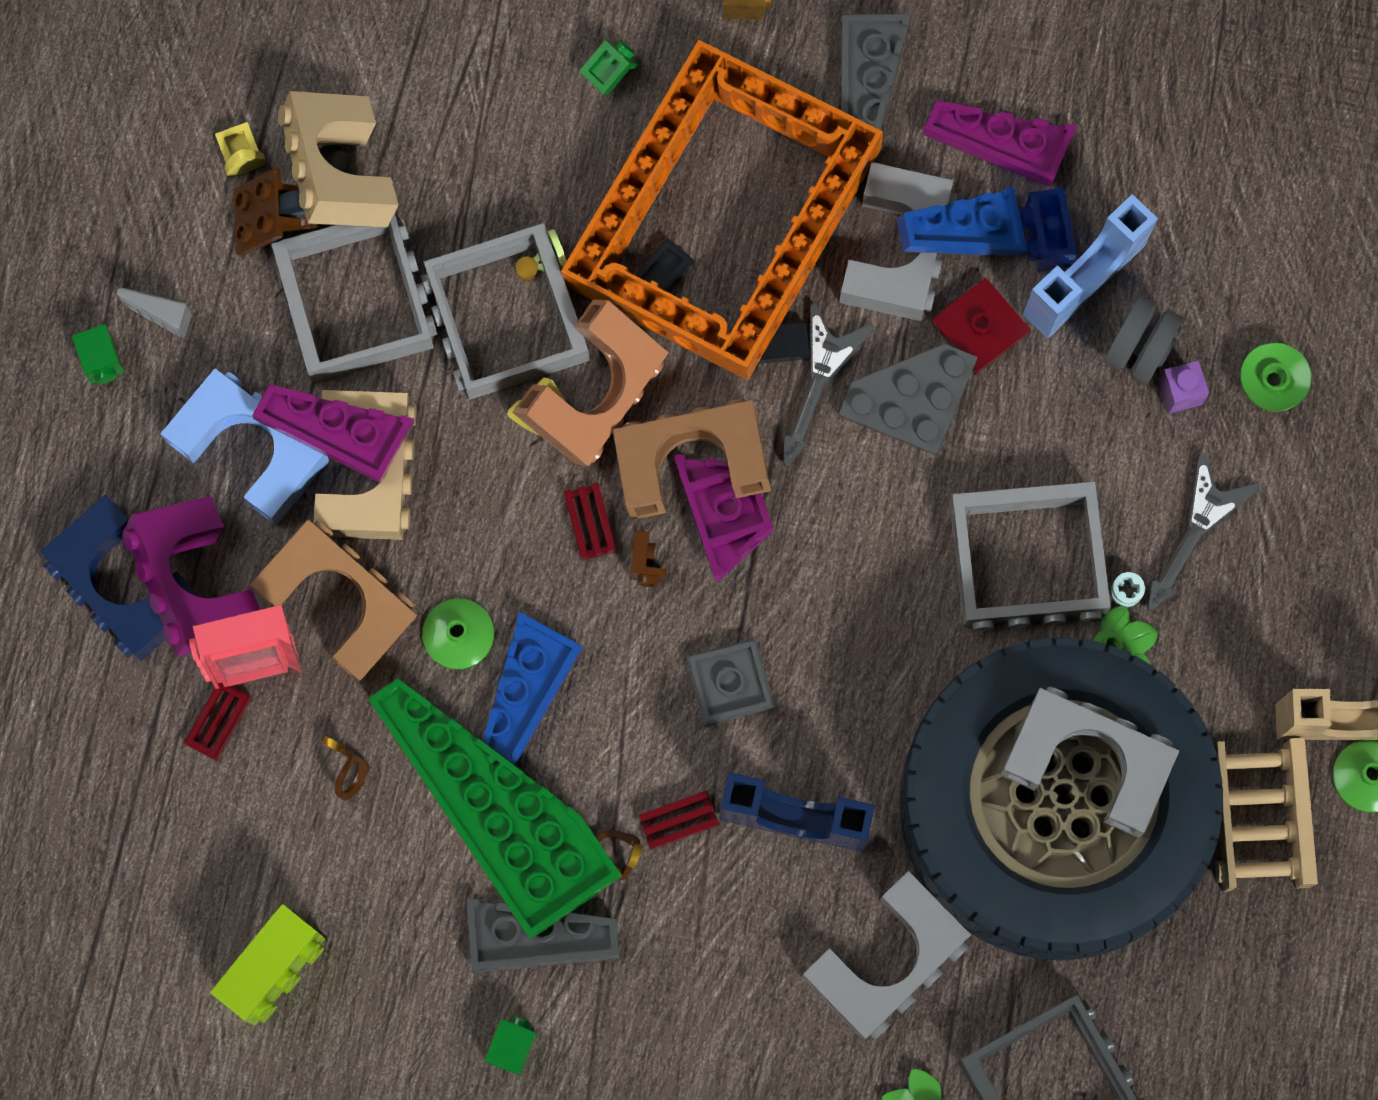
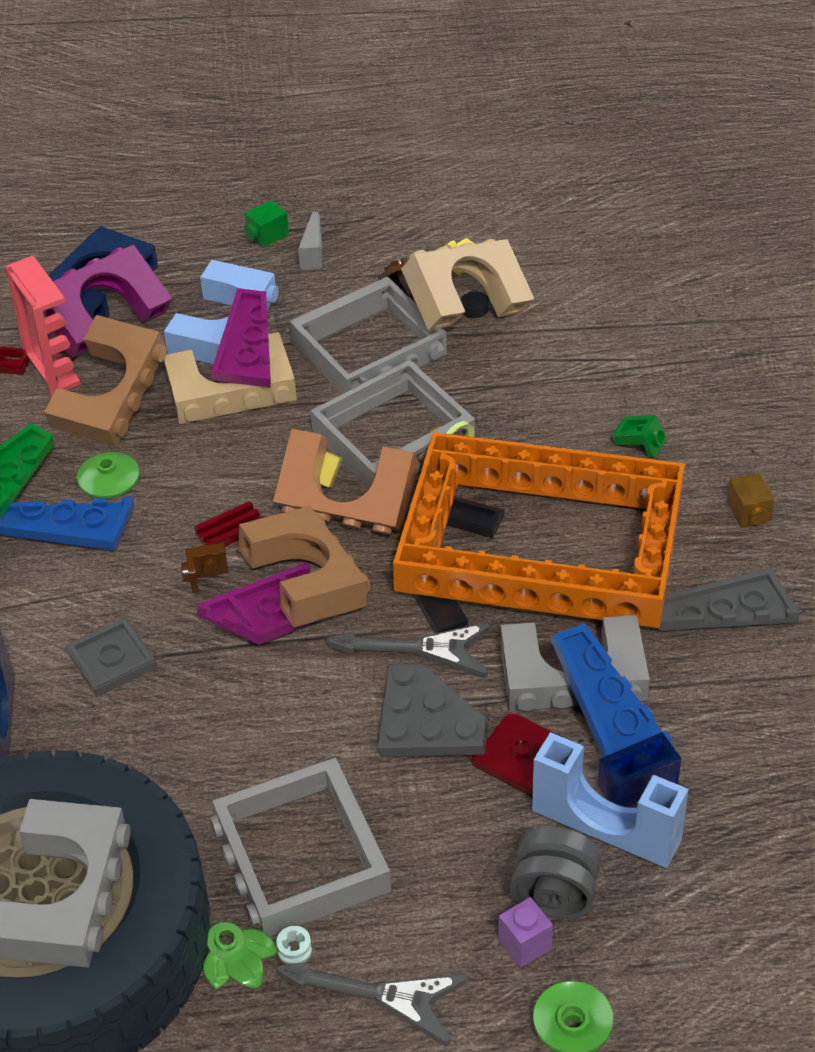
camera: 75 degrees right, 30 degrees down
(1015, 144) = (716, 723): magenta wing -> none

